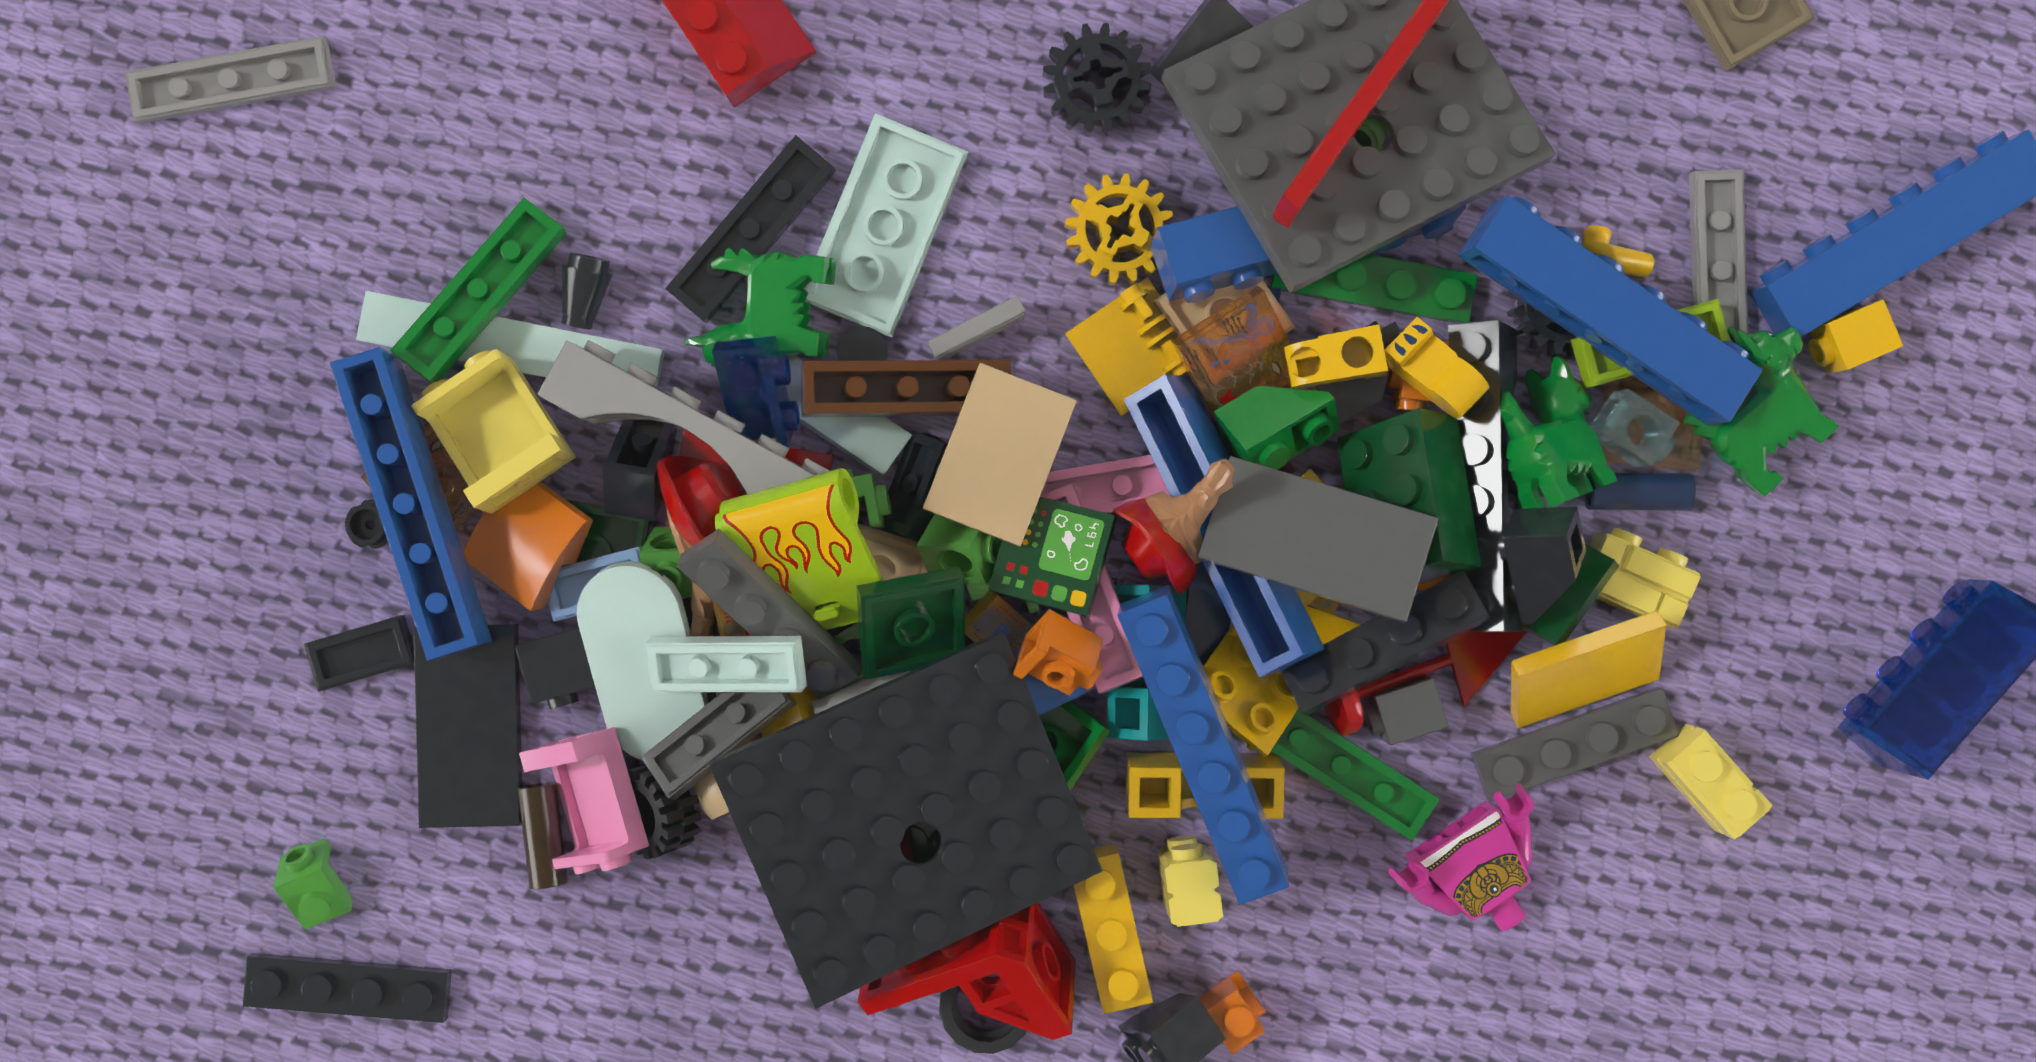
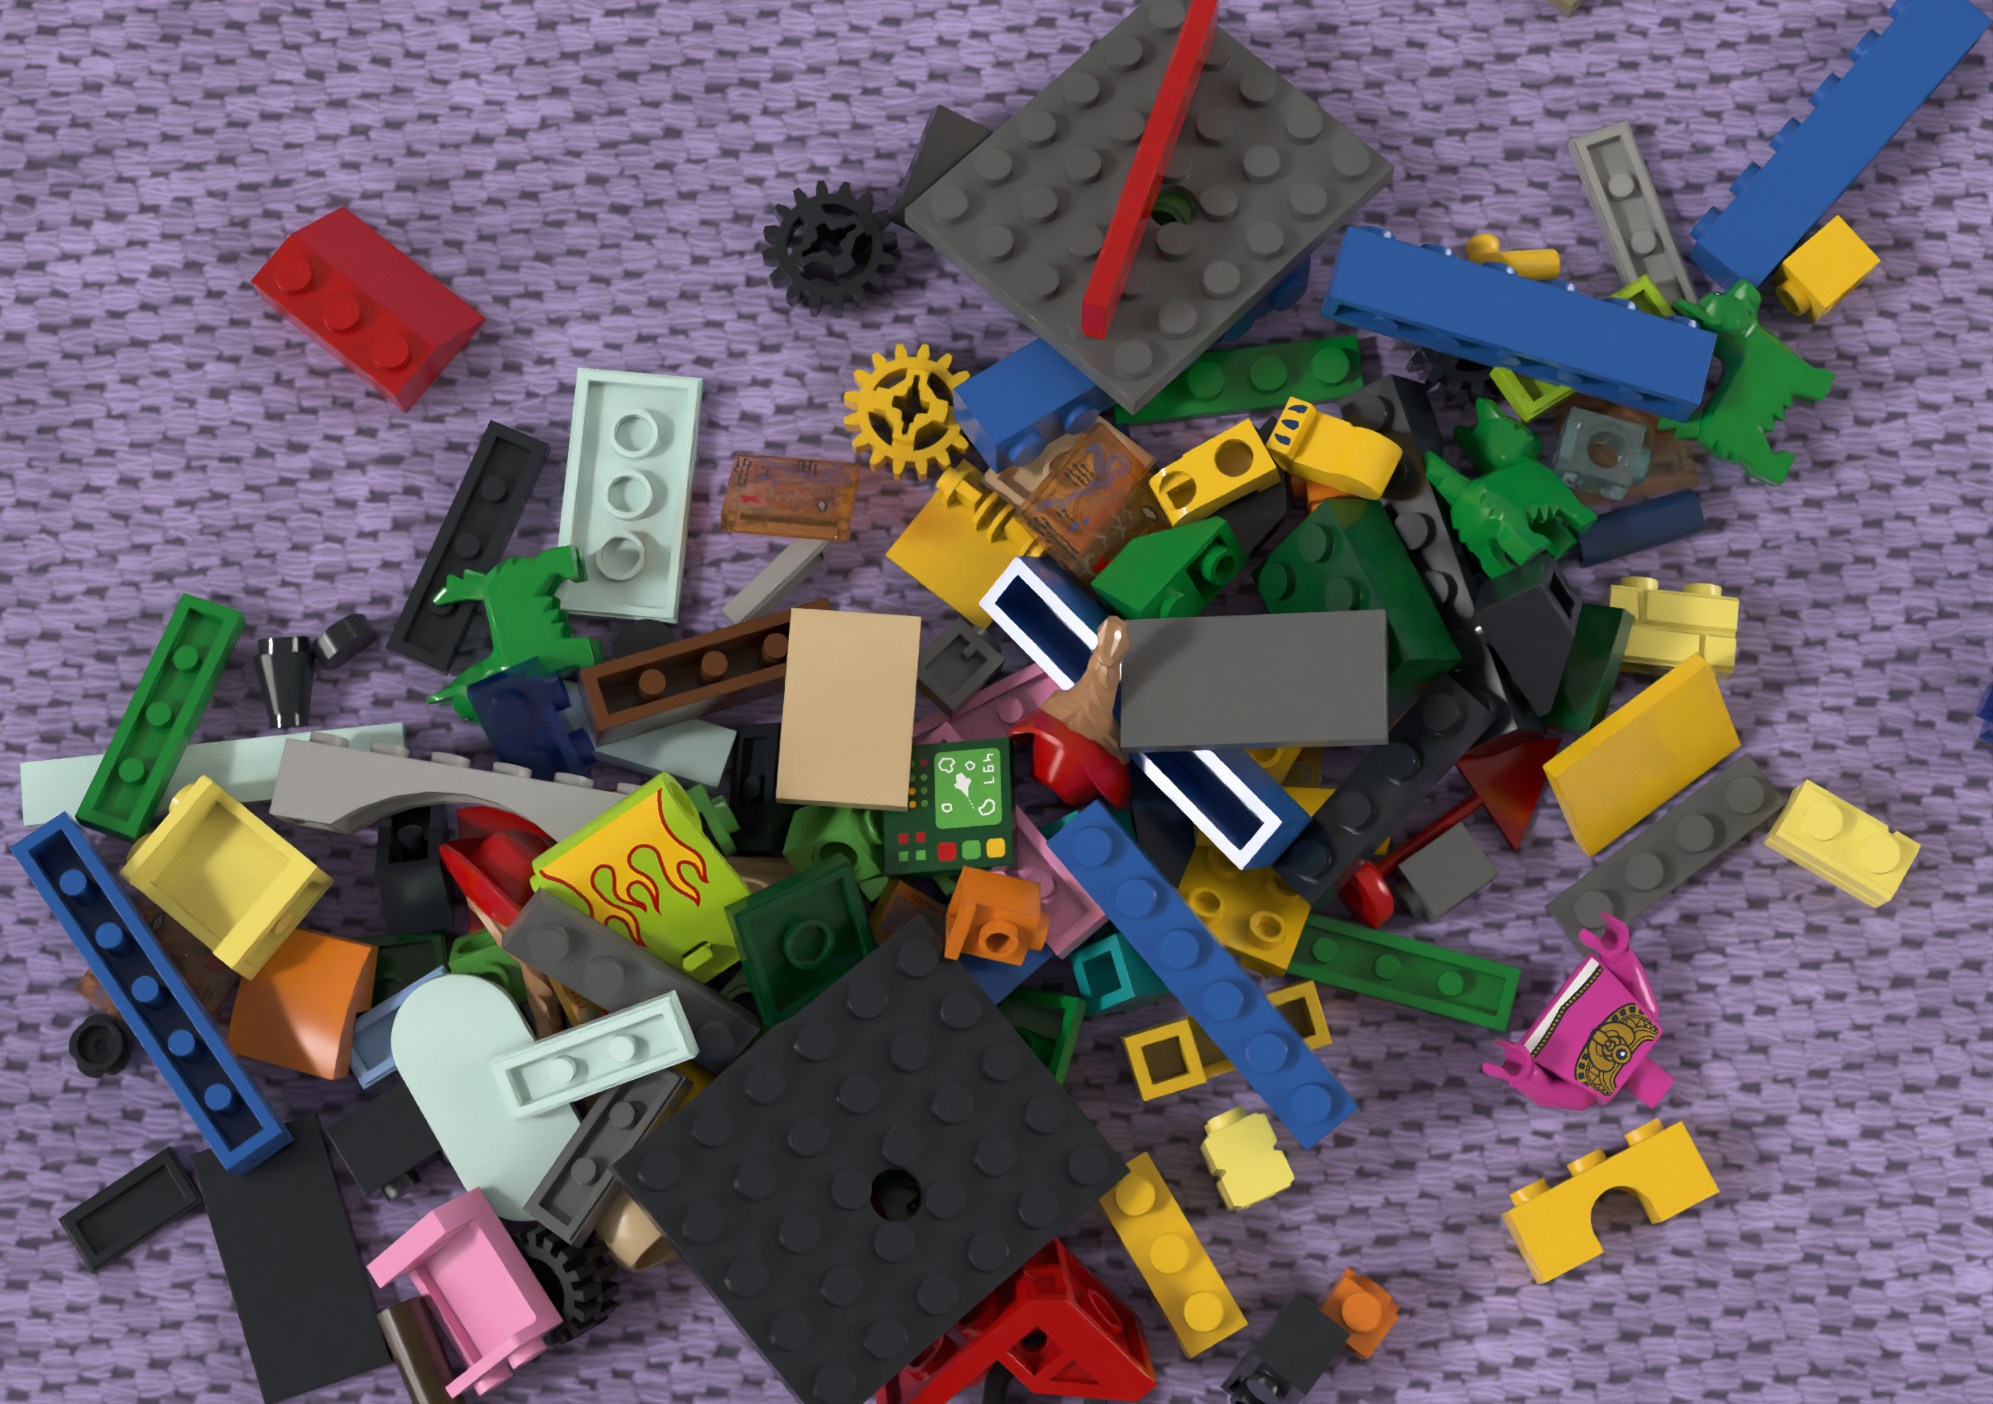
camera: 20 degrees left, 10 degrees down
(635, 273) = (344, 641): none -> black tile
(1006, 269) = (791, 497): none -> clear orange tile
(1094, 440) = (958, 666): none -> dark grey bracket
(1403, 987) = (1555, 1222): none -> yellow arch

